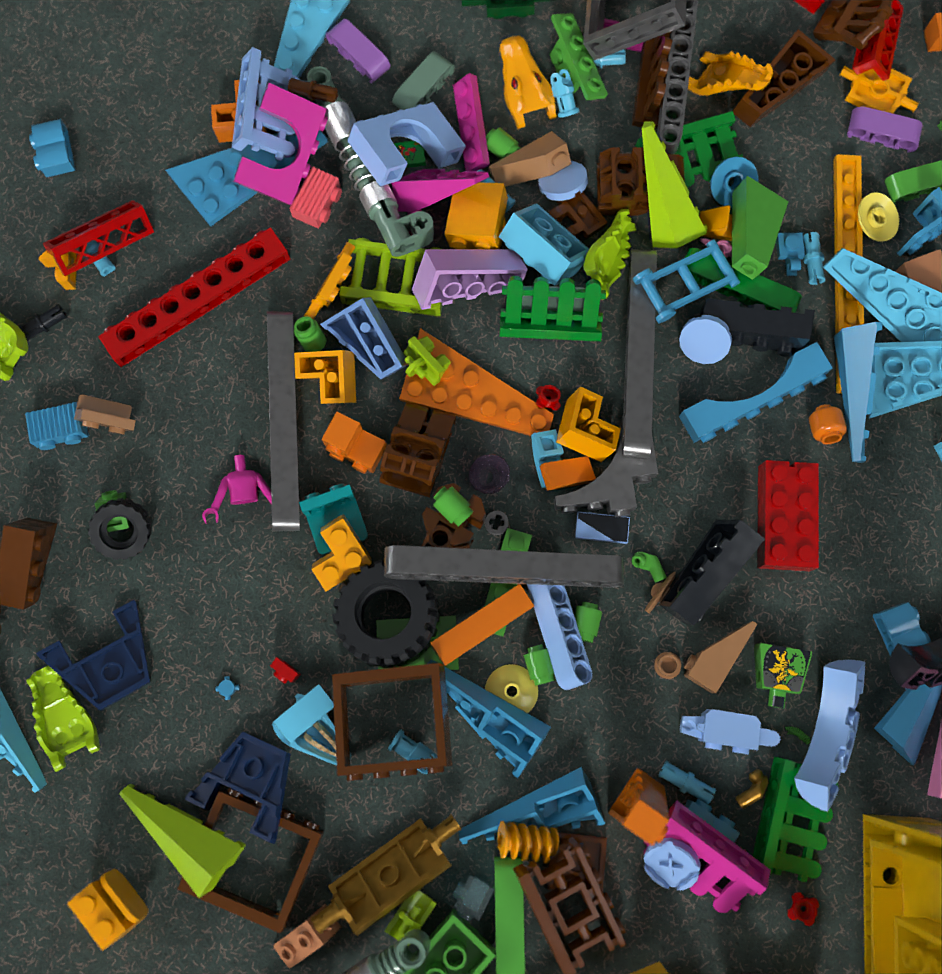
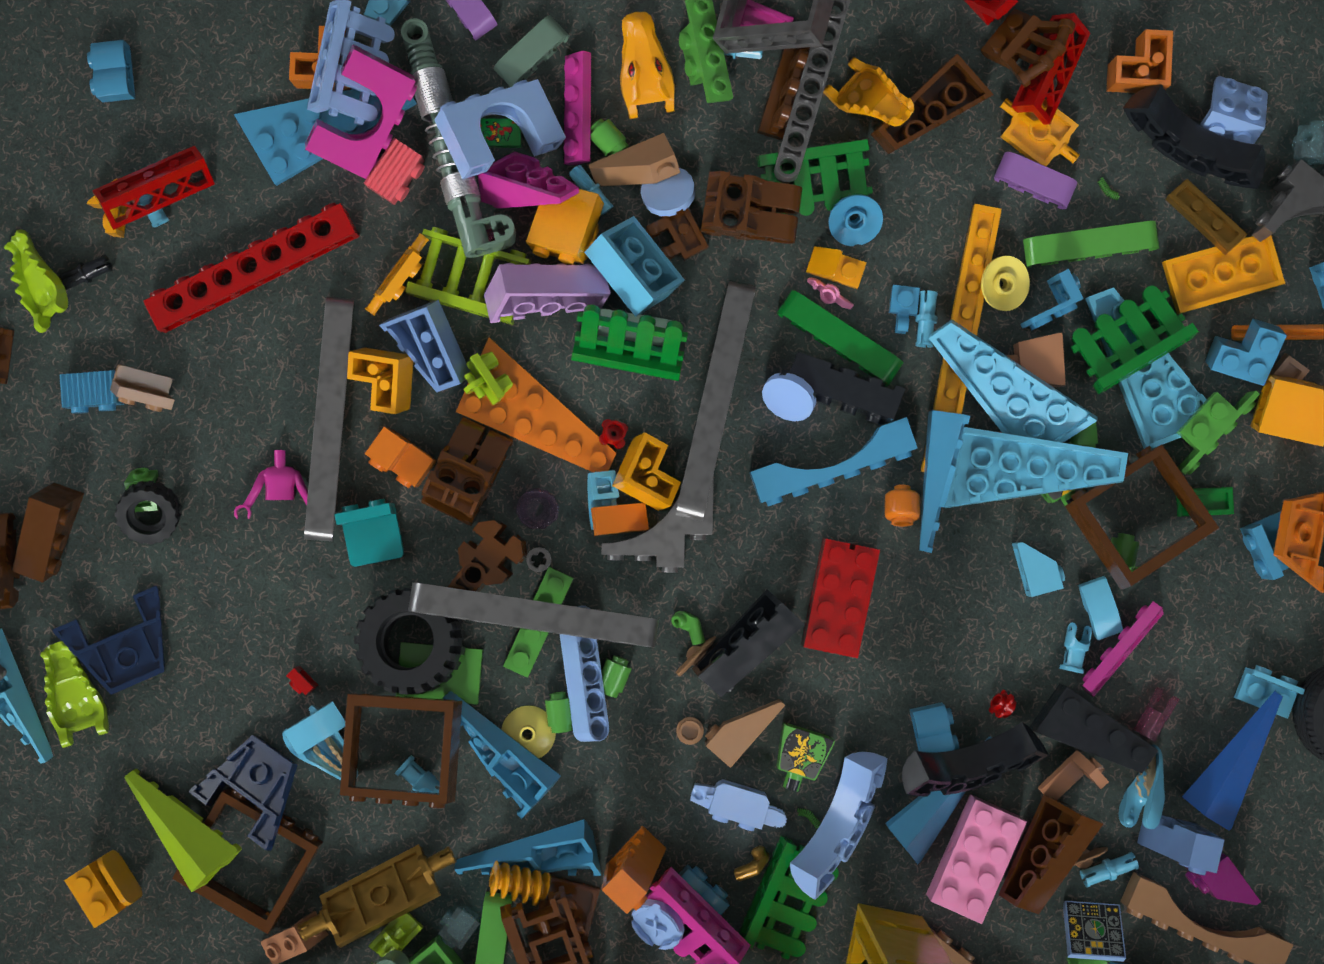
camera: 10 degrees right, 10 degrees up
(227, 687) = (242, 688): dark azure piece -> none
(309, 334) = (367, 330): bright green brick -> none
(312, 90) = (404, 50): reddish brown axle -> none
(346, 556) = (376, 572): light orange brick -> none
(452, 505) = (488, 546): bright green brick -> none
(482, 624) = (505, 665): orange tile -> none
(563, 91) = (685, 87): medium azure piece -> none
(602, 527) = (647, 580): black tile -> none
(607, 254) = (701, 286): lime animal -> none
(666, 312) = (735, 322): dark azure piece -> none
(671, 212) = (774, 249): lime wedge -> none
(687, 782) = (688, 848): medium azure pin -> none
(755, 226) = (866, 277): bright green slope -> none

